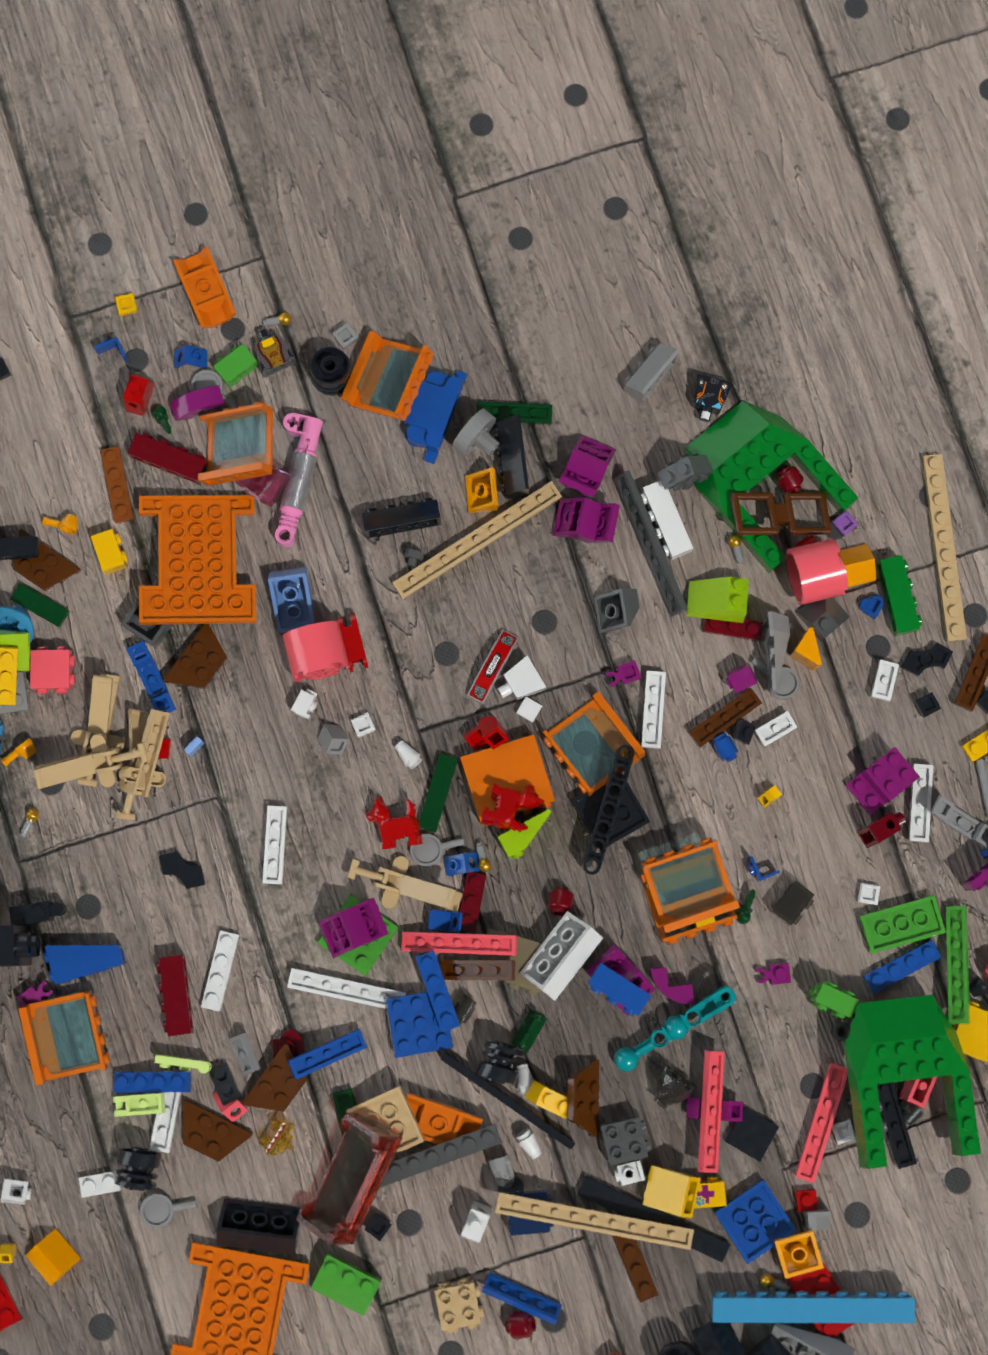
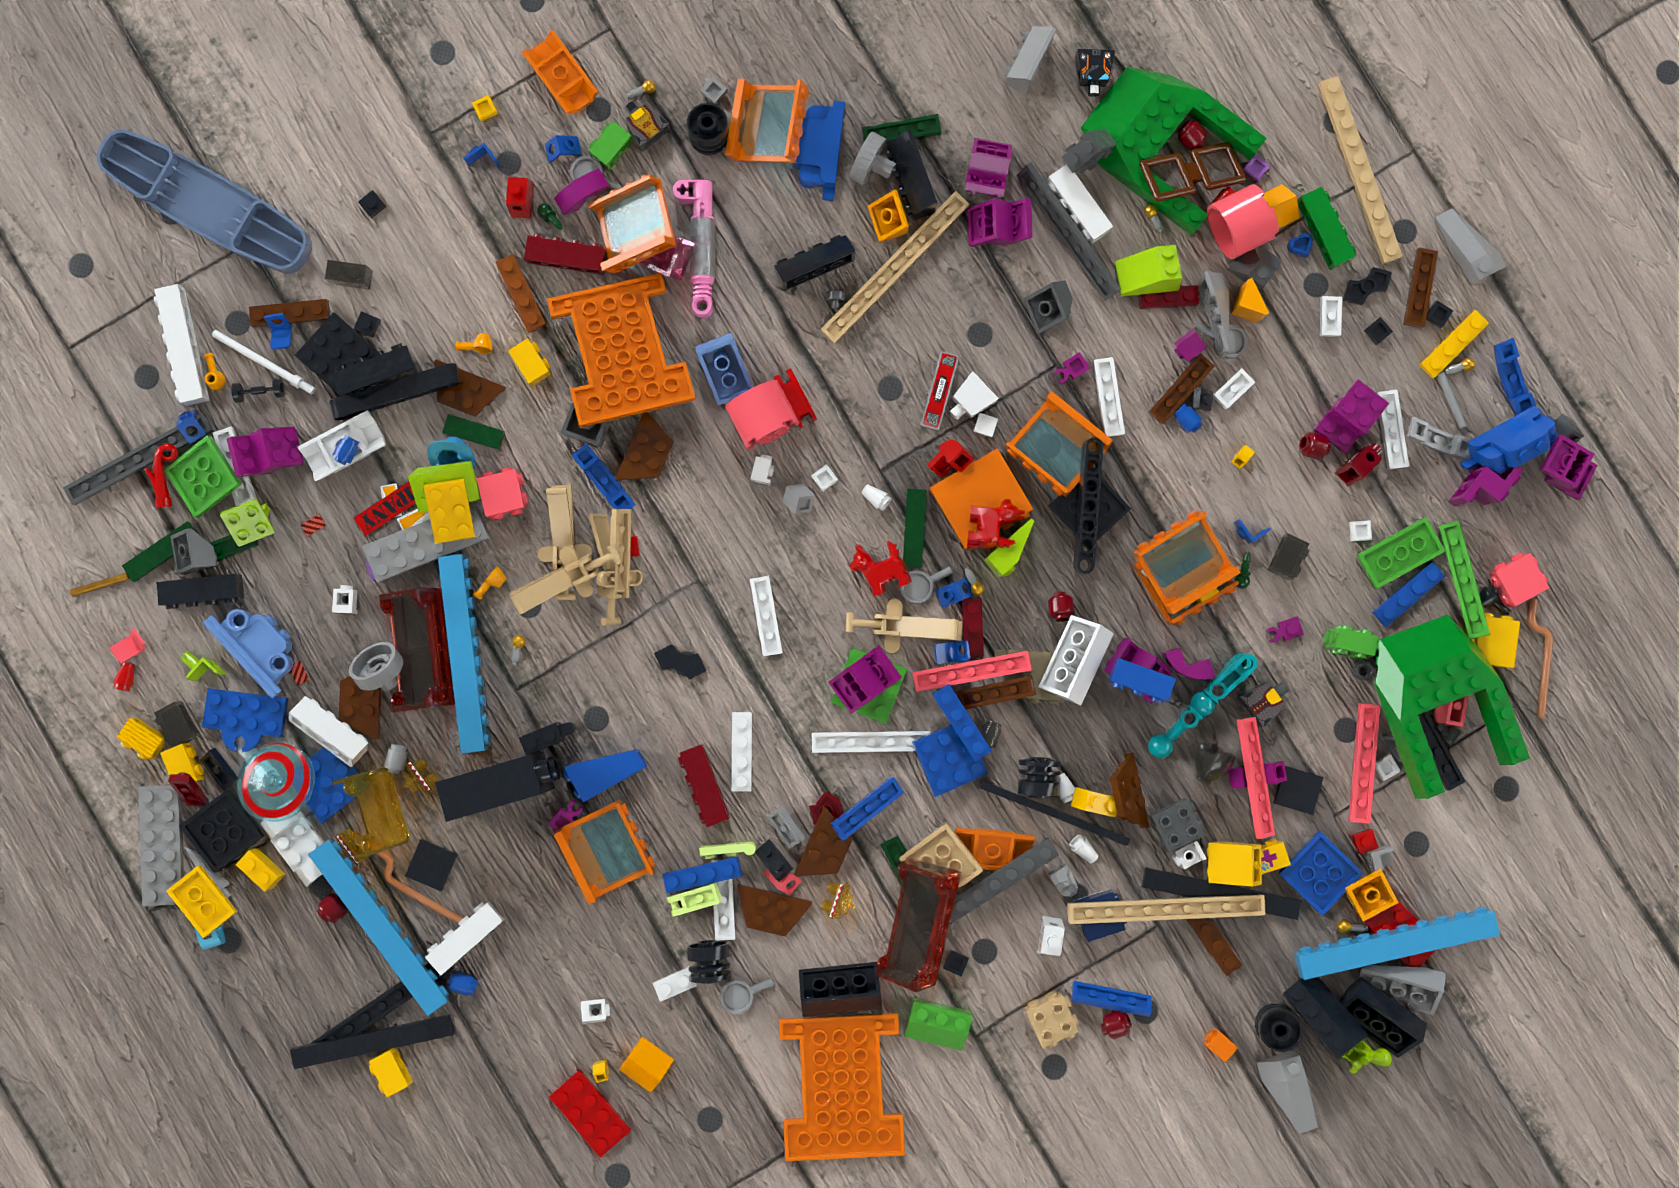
camera: 15 degrees left, 5 degrees up
(194, 746) = (662, 537): light blue tile -> none
(529, 1031) = (1058, 740): dark green hinge -> none
(737, 1039) = (1264, 701): none -> torso
(841, 801) = (1314, 445): none -> dark red head

